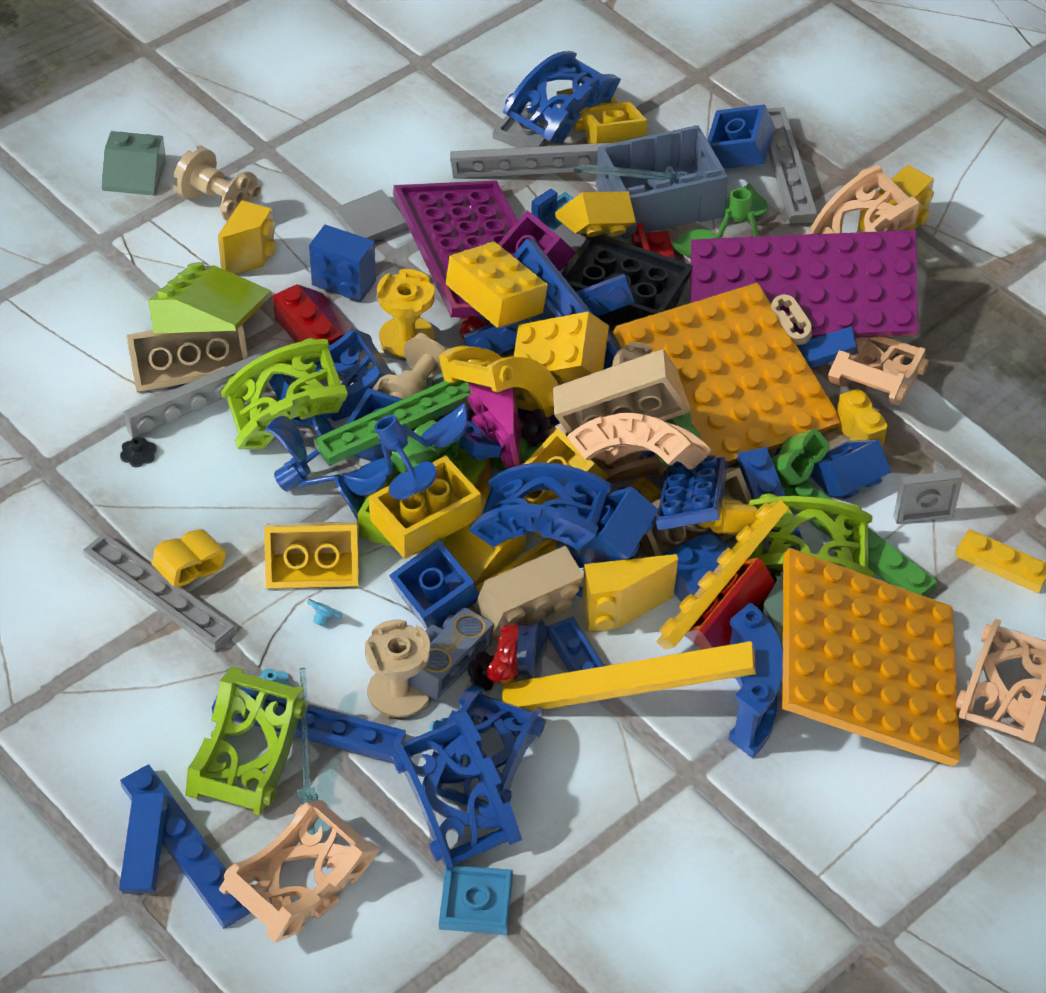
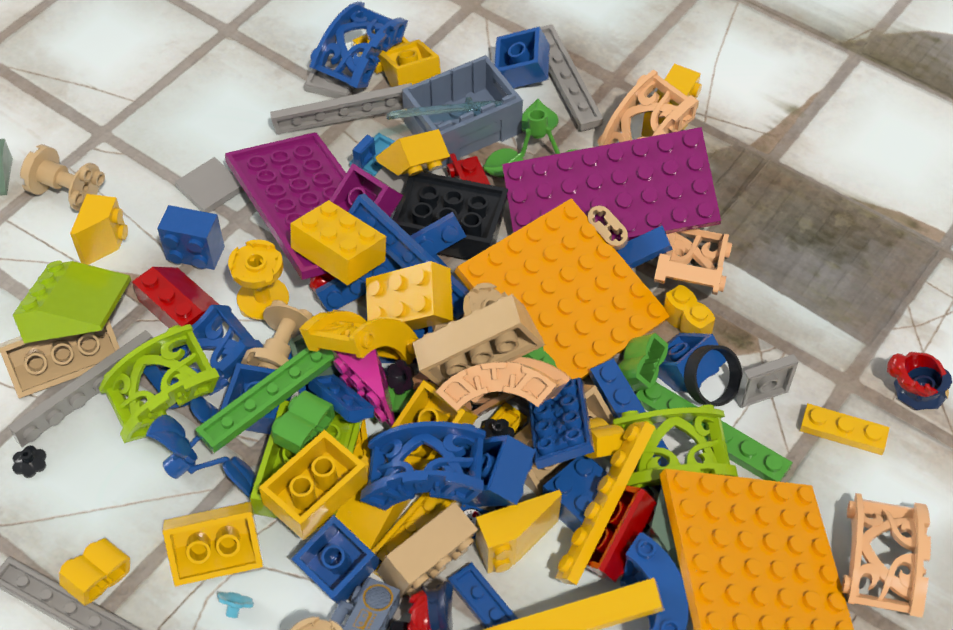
camera: 10 degrees left, 5 degrees up
(394, 437) = (302, 464): blue plant -> none
(845, 473) = (735, 375): none -> black tyre

